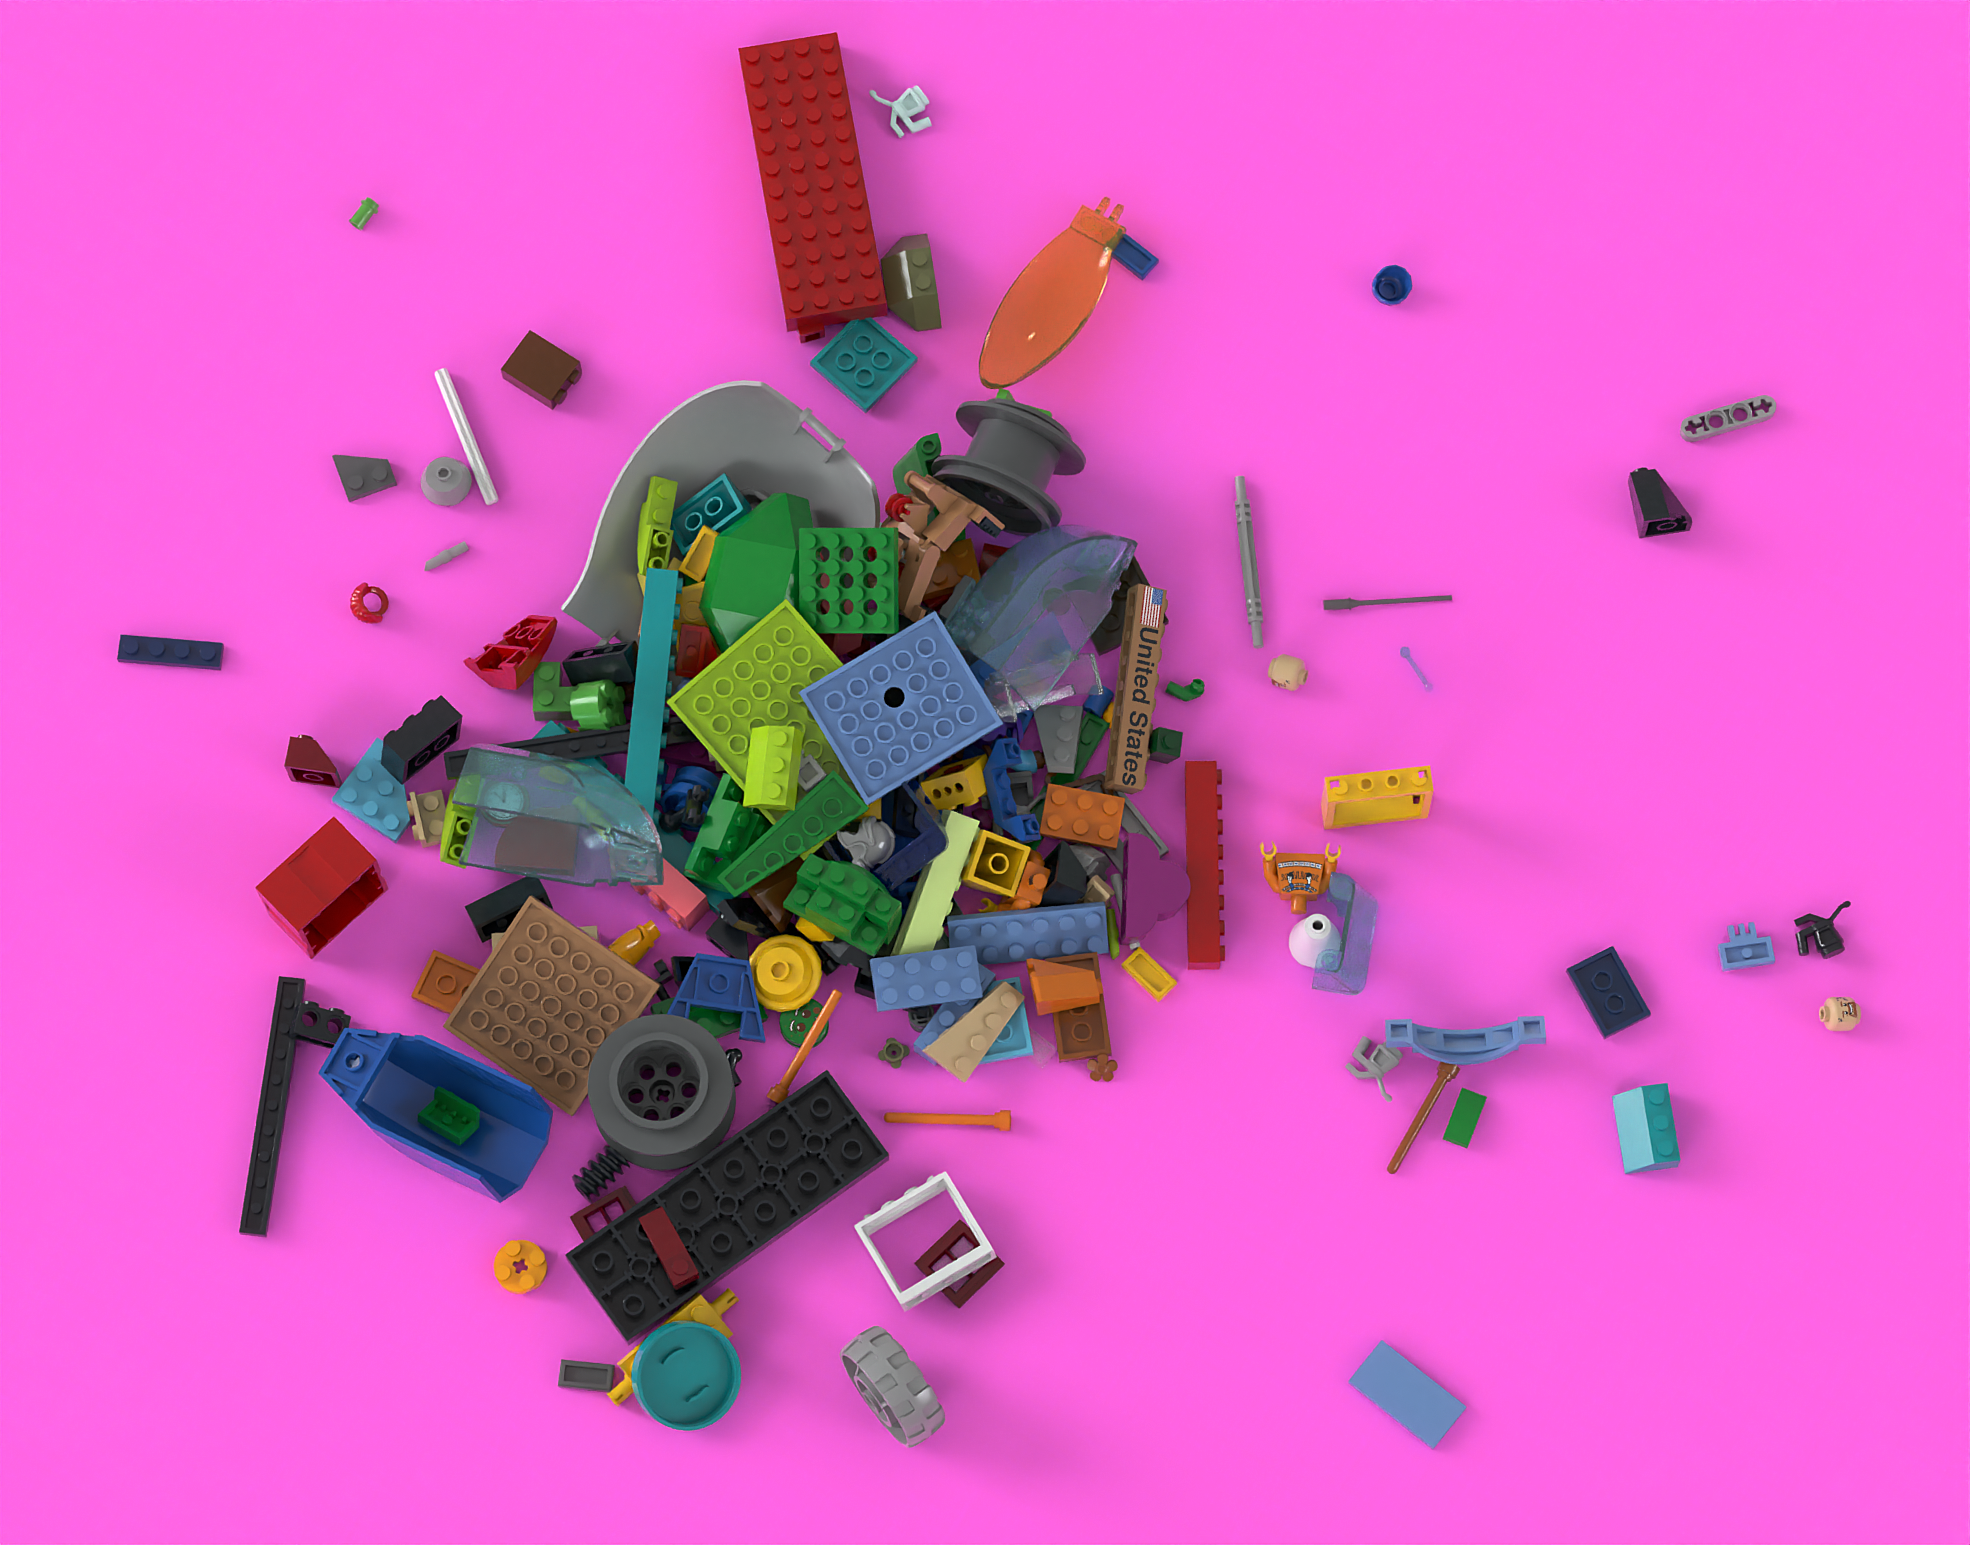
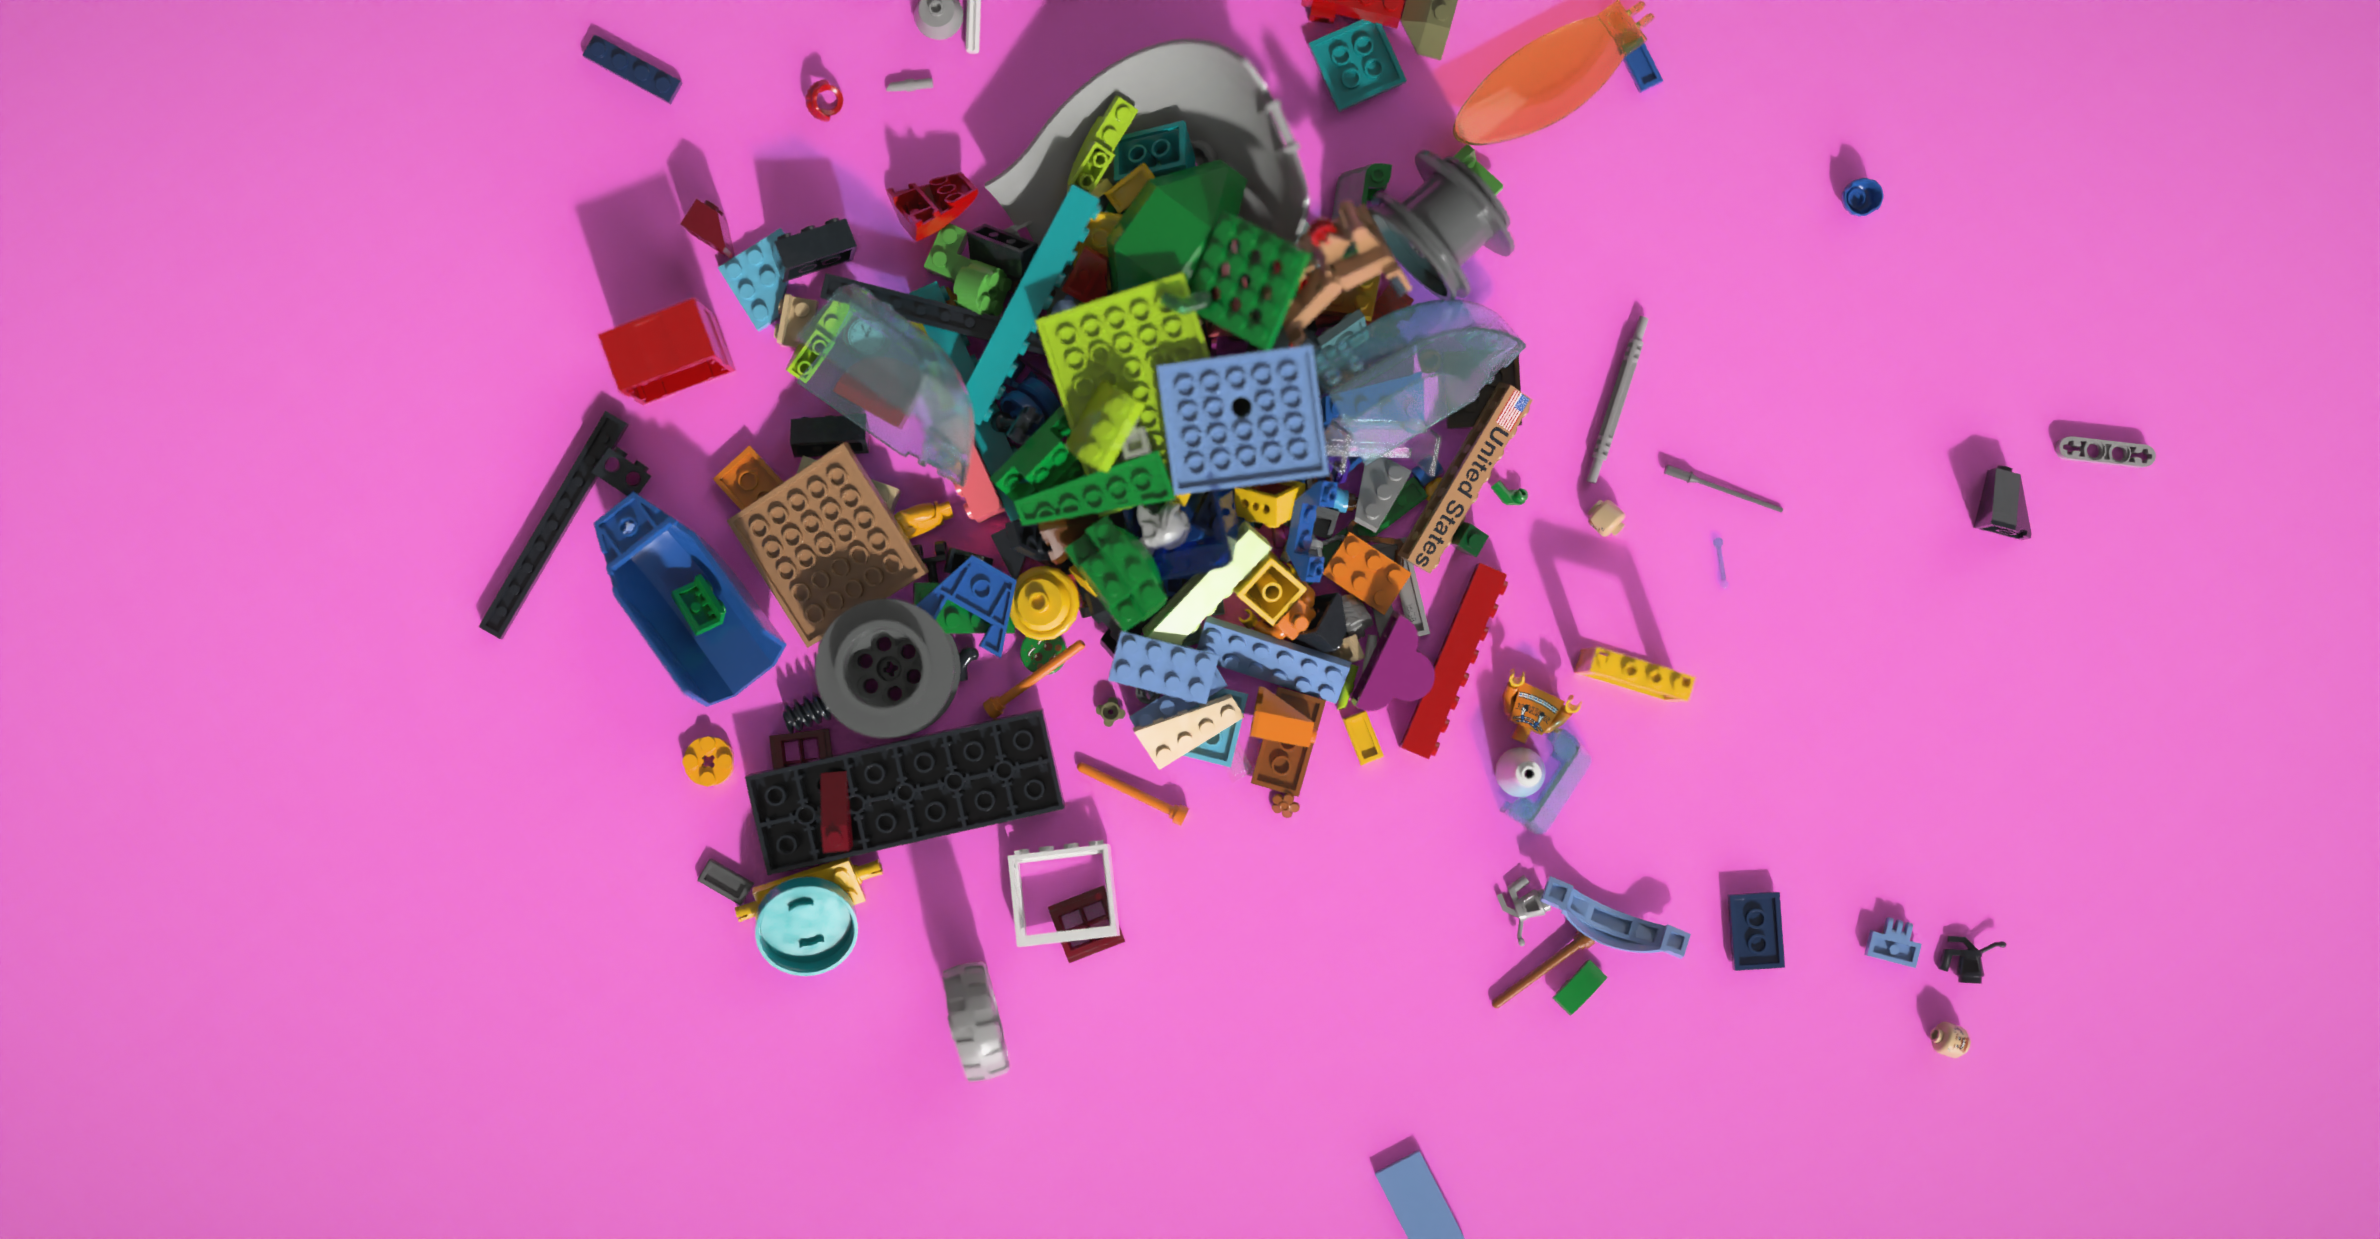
camera: 20 degrees right, 15 degrees up
(803, 625) = (1188, 304): none -> clear green arm
(1646, 1129) = (1733, 1067): slope -> none

